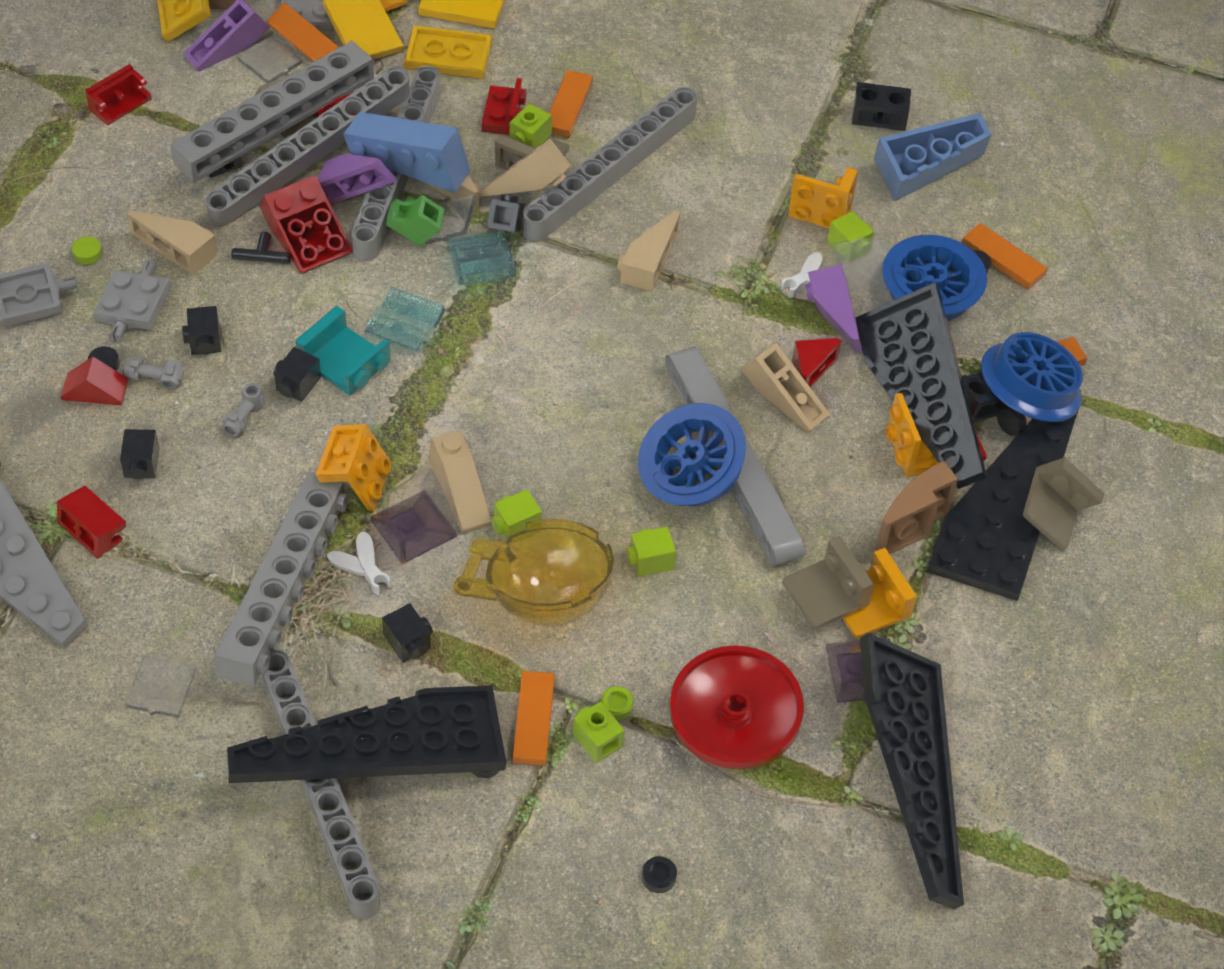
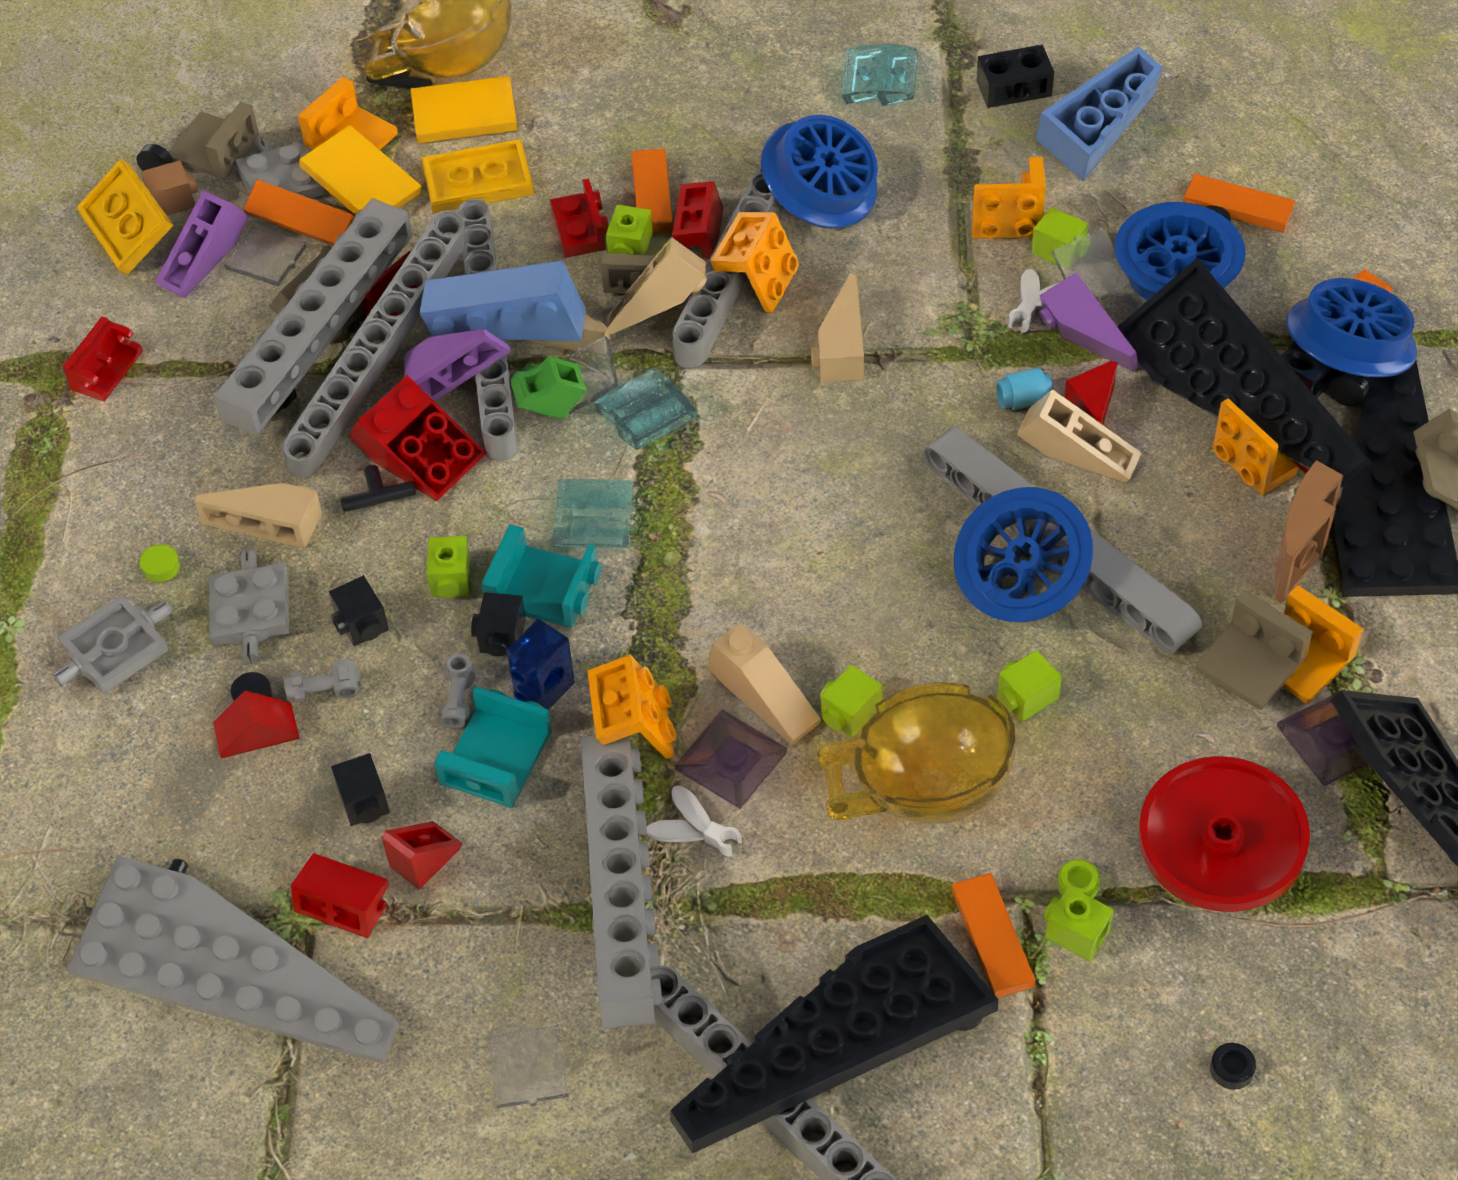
camera: 15 degrees left, 0 degrees up
(161, 510) = (419, 851): none -> red slope
(251, 460) = (496, 748): none -> teal panel
(282, 321) = (449, 566): none -> lime brick
(305, 412) = (541, 665): none -> clear blue brick
(407, 632) = (795, 889): black brick -> none
(505, 213) = (652, 345): black brick -> none
(589, 132) = (698, 217): none -> red hinge
(618, 175) = (760, 249): none -> light orange bracket
(696, 128) = (832, 158): none -> blue piece
(762, 335) = (1023, 388): none -> medium azure brick
(781, 71) = (880, 72): none -> clear light blue slope

